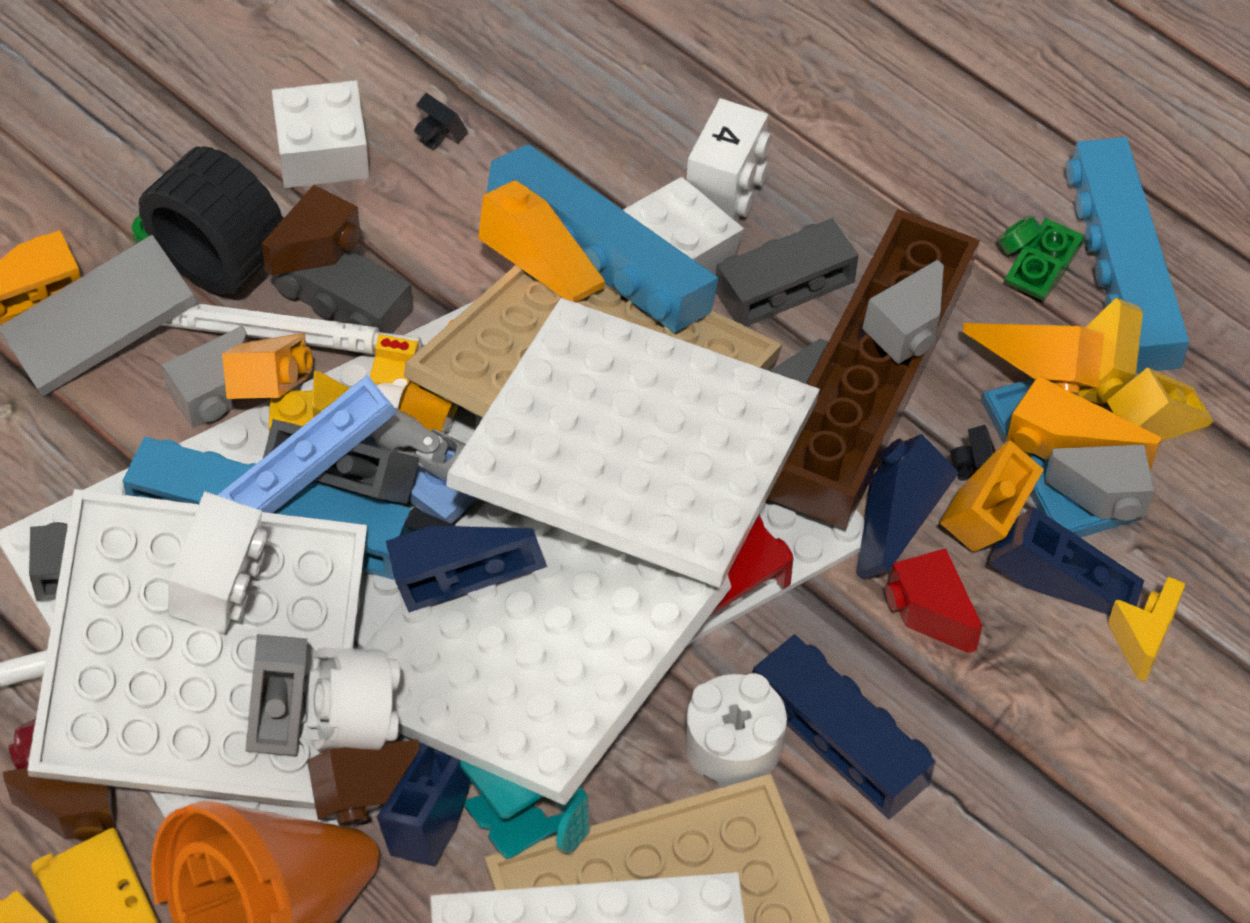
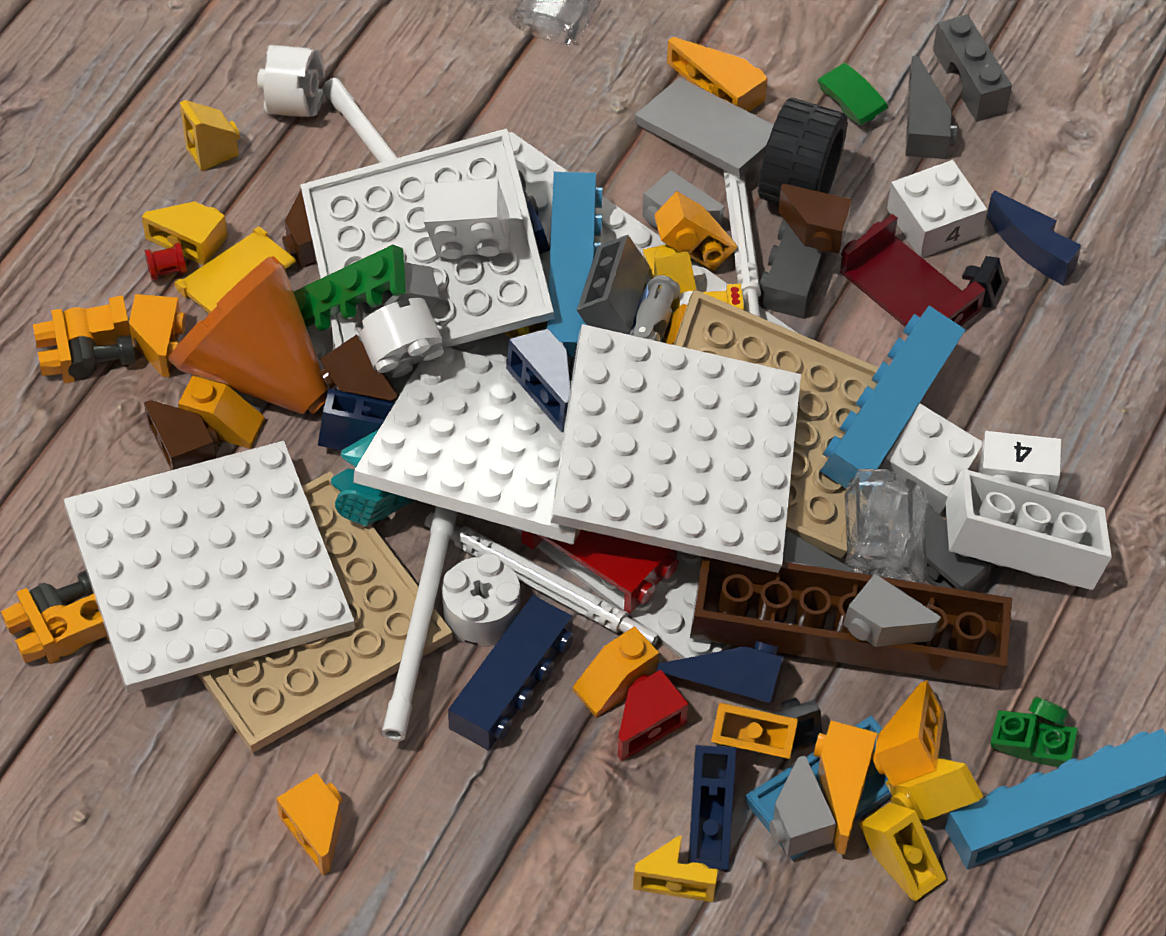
camera: 75 degrees right, 0 degrees up
(115, 159) = (853, 92): none -> green slope
(155, 33) = (984, 82): none -> dark grey arch
(171, 104) = (928, 116): none -> dark grey slope
(248, 725) = (351, 286): none -> green hinge
(312, 448) = (599, 257): light blue tile -> none
(398, 62) = (1033, 237): none -> dark blue slope
(418, 193) = (902, 279): none -> dark red panel
(536, 240) = (862, 357): light orange slope -> none
(719, 659) = (548, 582): none -> white axle
(784, 291) = (886, 526): none -> clear brick
(810, 172) = (1027, 529): none -> white brick
(870, 615) = (615, 670): none -> light orange slope
(871, 849) = (400, 705): none -> white piece

